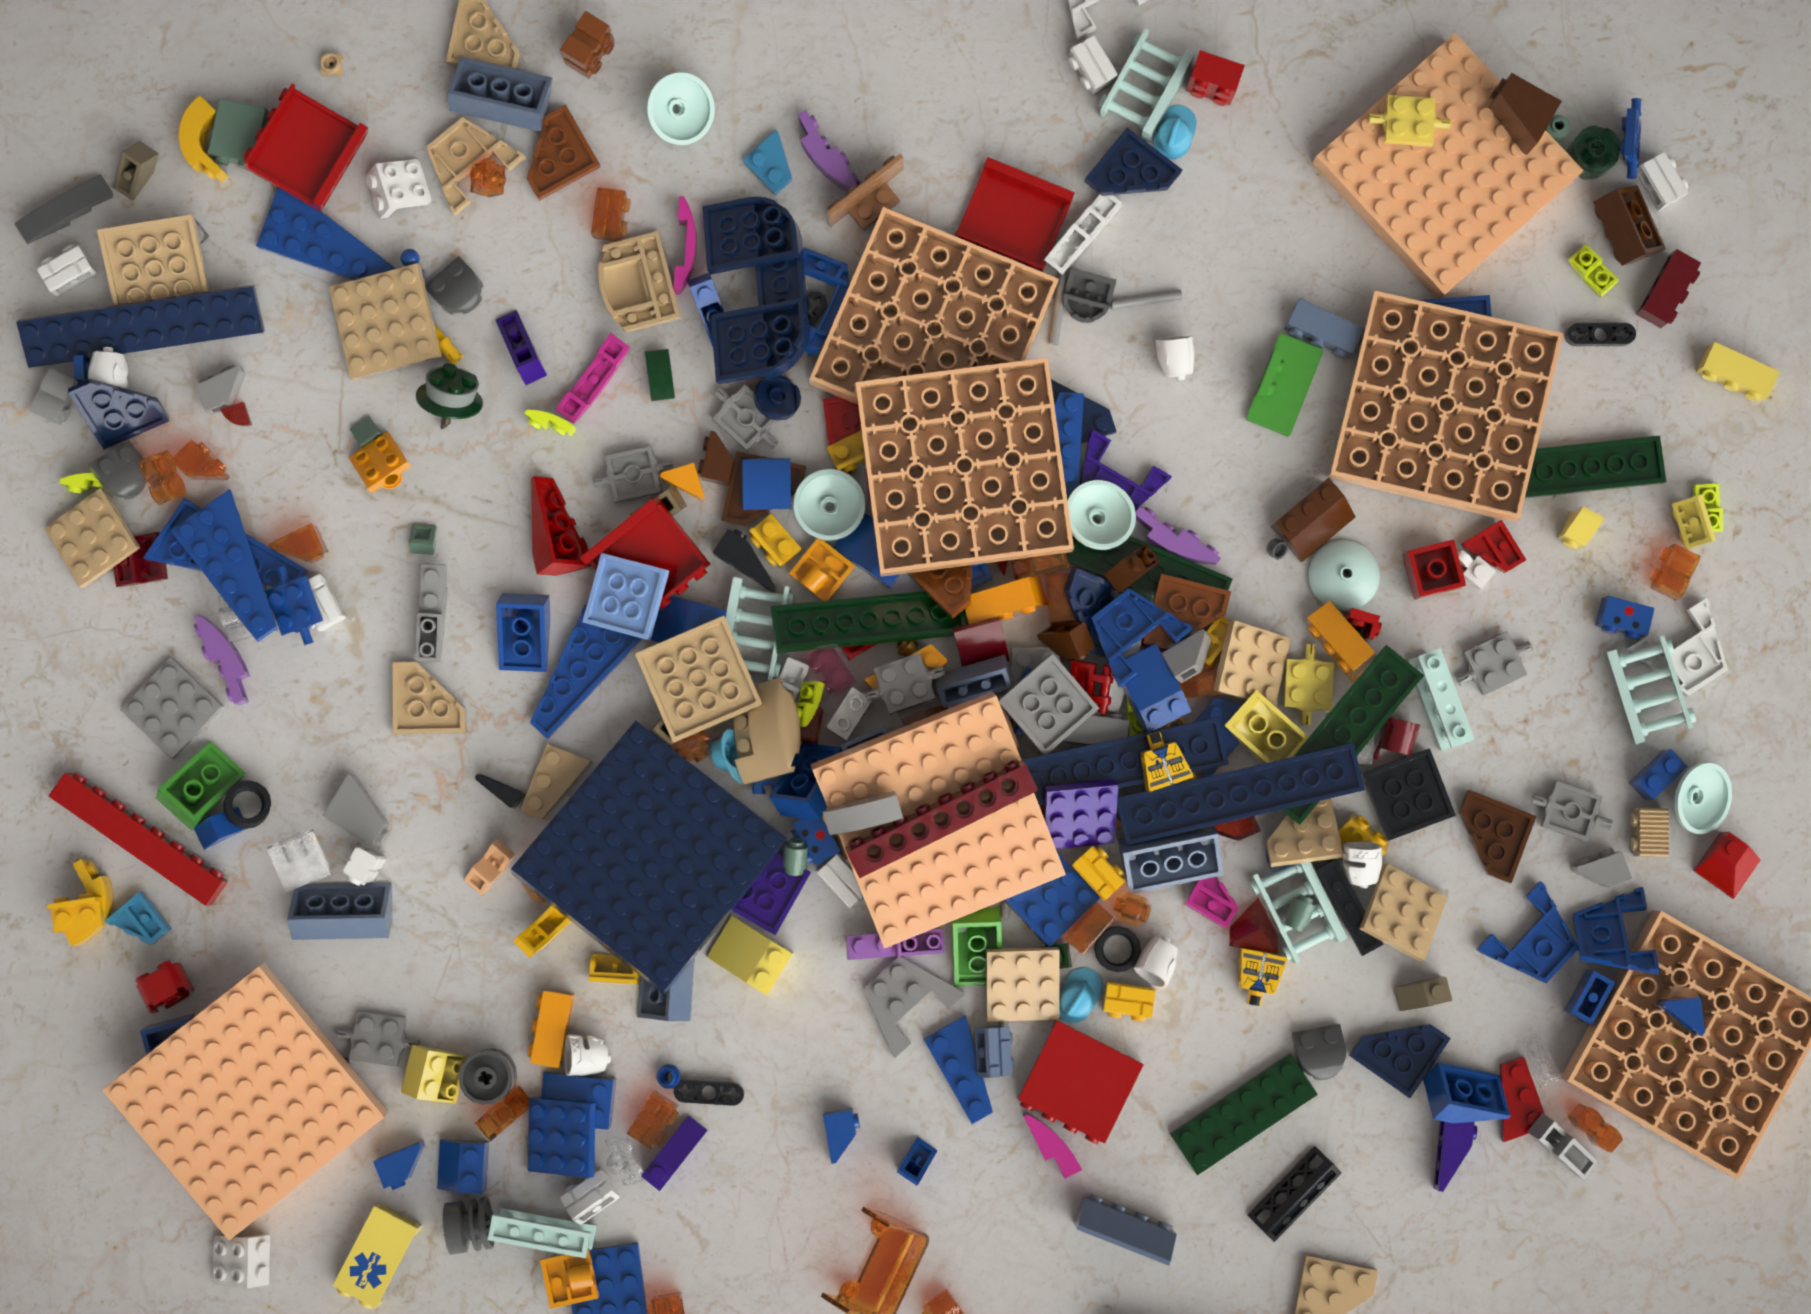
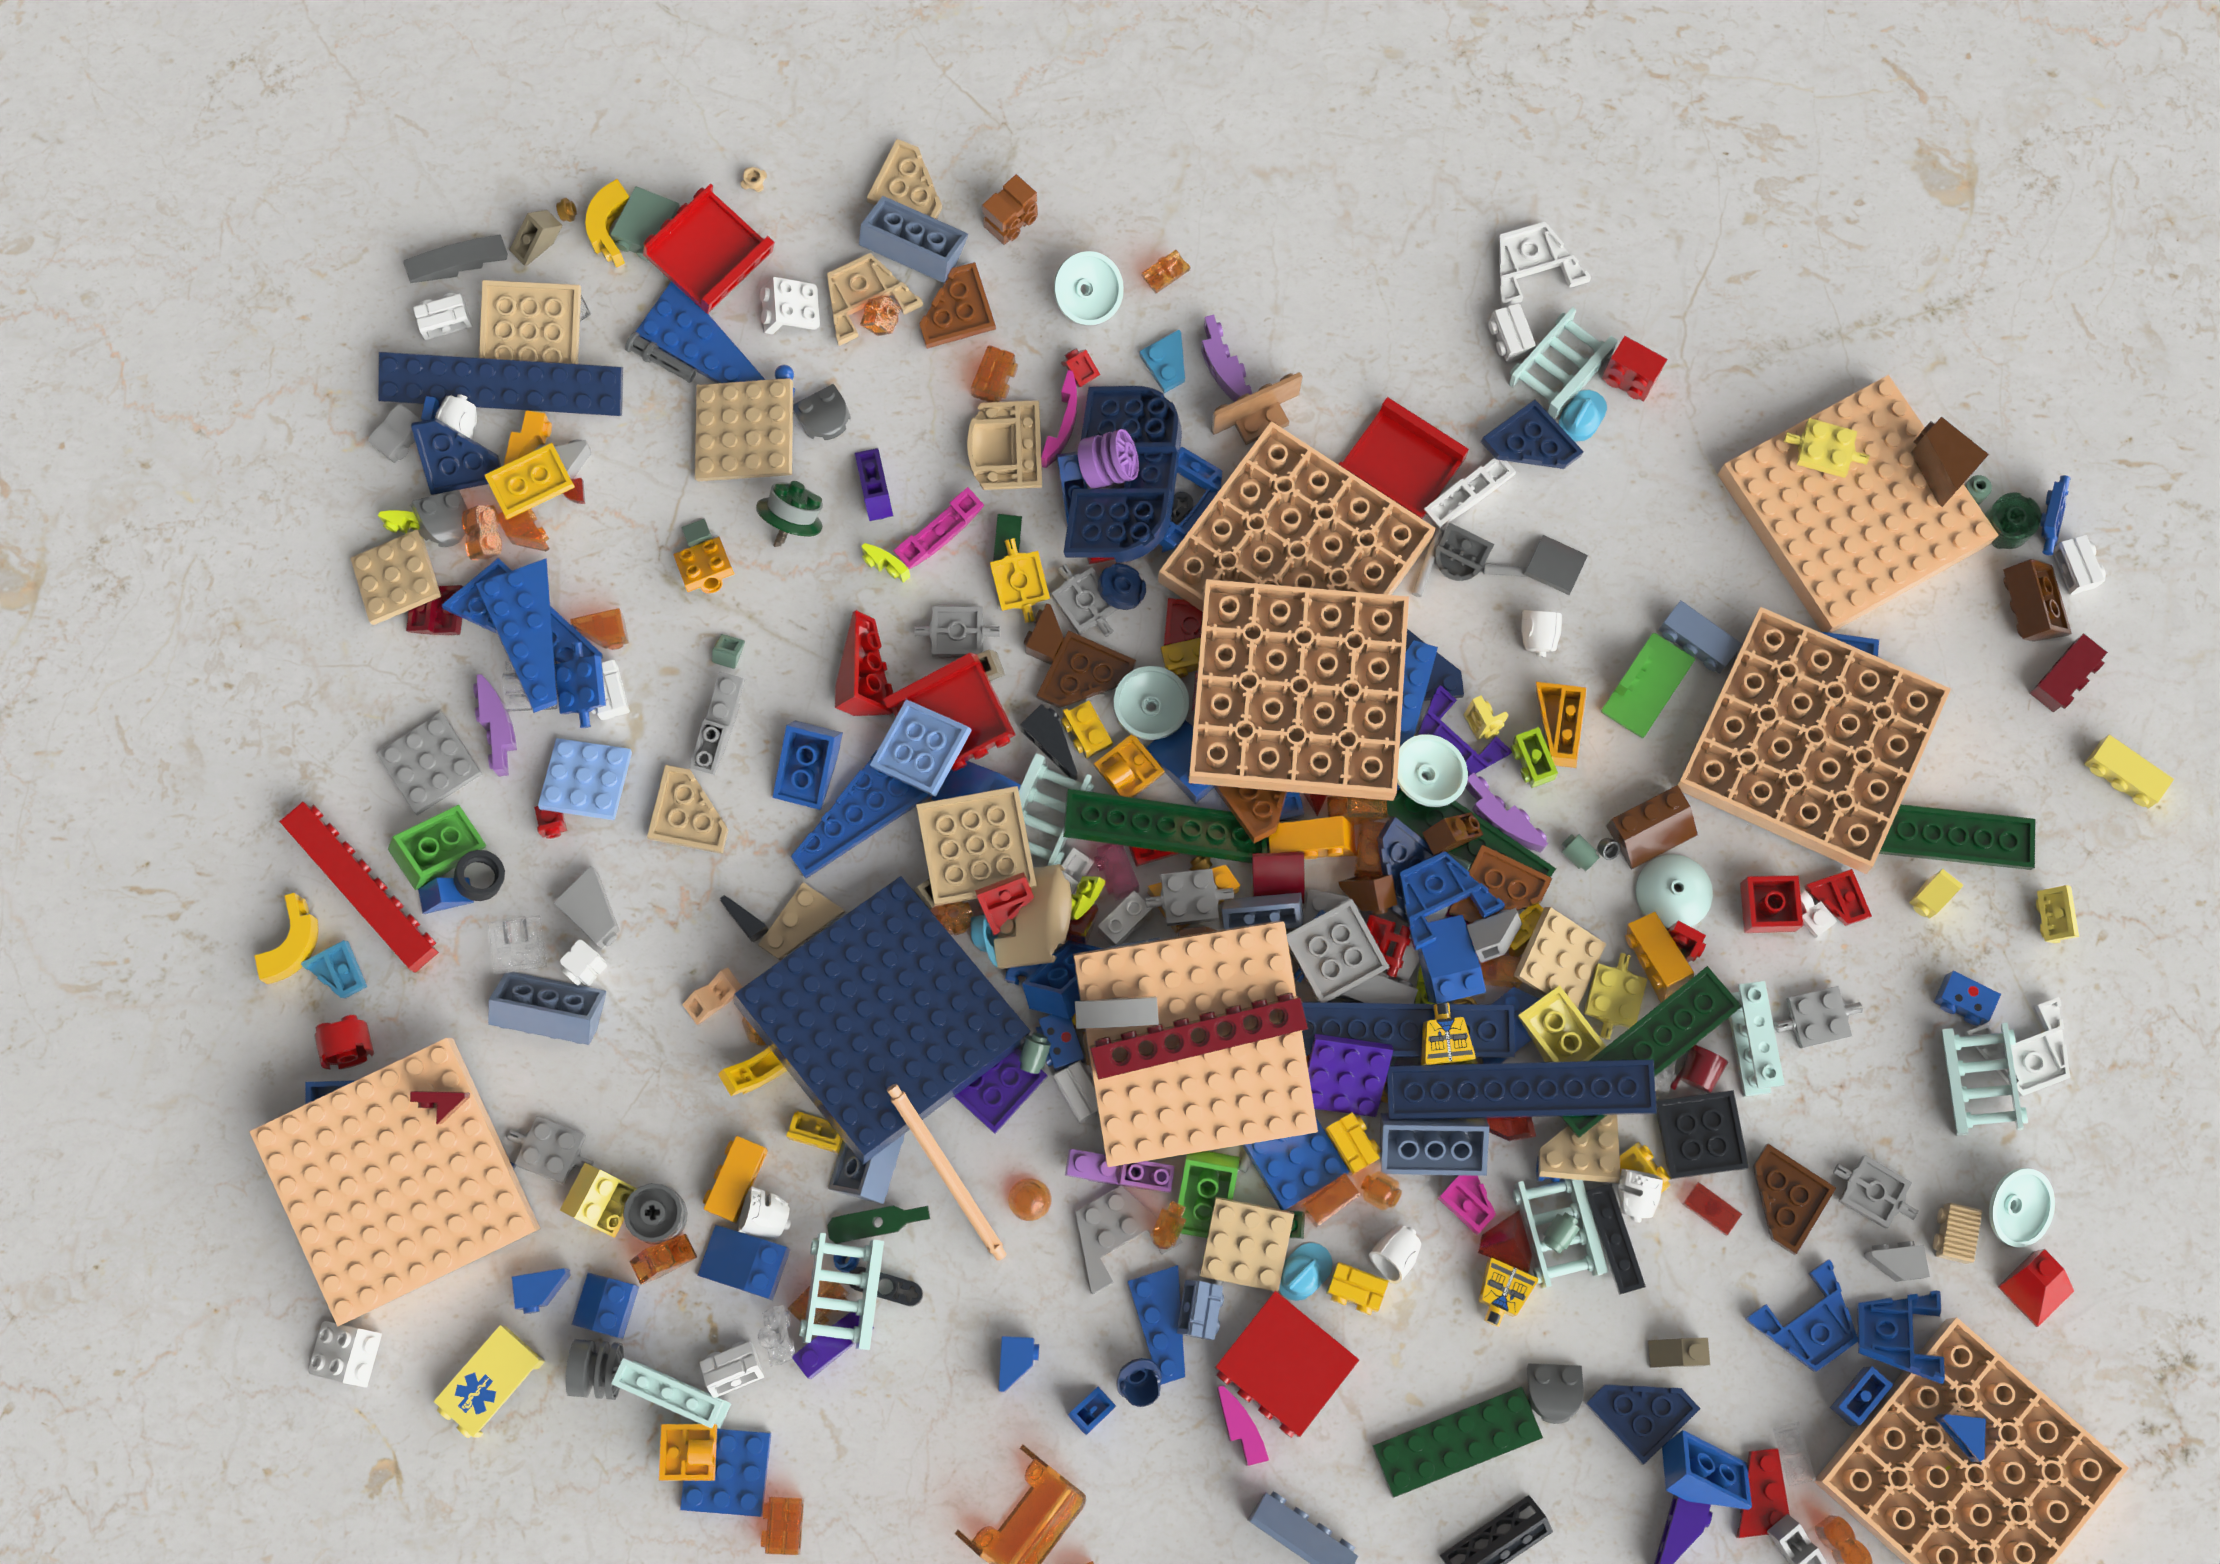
camera: 15 degrees right, 10 degrees down
(76, 914) = (274, 945): yellow bracket -> none
(158, 136) = (566, 210): none -> pearl gold plate
(185, 366) = (533, 433): none -> light orange slope
(194, 419) = (529, 481): none -> yellow plate
(273, 1024) = (446, 1102): none -> dark red slope
(277, 263) = (651, 352): none -> dark grey pin
(299, 736) = (550, 823): none -> red bracket
(321, 691) = (585, 779): none -> light blue plate
(447, 348) = (799, 469): yellow axle -> none
(561, 1137) = (717, 1296): blue plate -> none
(675, 1043) = (862, 1225): none -> dark green piece
(680, 413) = (1019, 580): none -> yellow plate
(685, 479) = (1008, 647): light orange slope -> none
(690, 187) = (1081, 365): none -> red bracket
(691, 1094) = (863, 1307): none -> light aqua fence
(736, 724) = (1004, 899): none -> red wing
(737, 280) = (1108, 459): none -> medium lavender wheel
(739, 983) = (946, 1171): none -> light nougat piece
(749, 955) = (967, 1148): light yellow slope -> none
(750, 74) = (1165, 271): none -> clear orange hips
(766, 483) = (1091, 667): blue slope -> none
(820, 986) = (1030, 1199): none -> clear orange piece
(950, 986) = (1168, 1226): none -> clear orange hips
(953, 1127) = (1139, 1382): none -> dark blue piece
(1135, 953) = (1375, 1223): black tyre -> none
(1136, 453) = (1481, 721): none -> light yellow bracket
(1177, 286) = (1556, 565): none -> dark grey slope
(1193, 479) = (1534, 758): none -> lime brick
(1212, 438) = (1562, 720): none -> light orange wedge
(1251, 558) = (1579, 852): none -> sand green brick
(1403, 912) = (1673, 1258): tan plate -> none
(1429, 858) = (1712, 1209): none -> clear red plate
(1592, 271) = (1990, 639): neon yellow slope -> none
(1607, 327) = (2005, 715): black beam -> none
(1658, 774) = (1976, 1172): blue brick -> none
(1674, 572) = (2028, 962): clear orange brick -> none
(1710, 496) = (2080, 895): neon yellow slope -> none

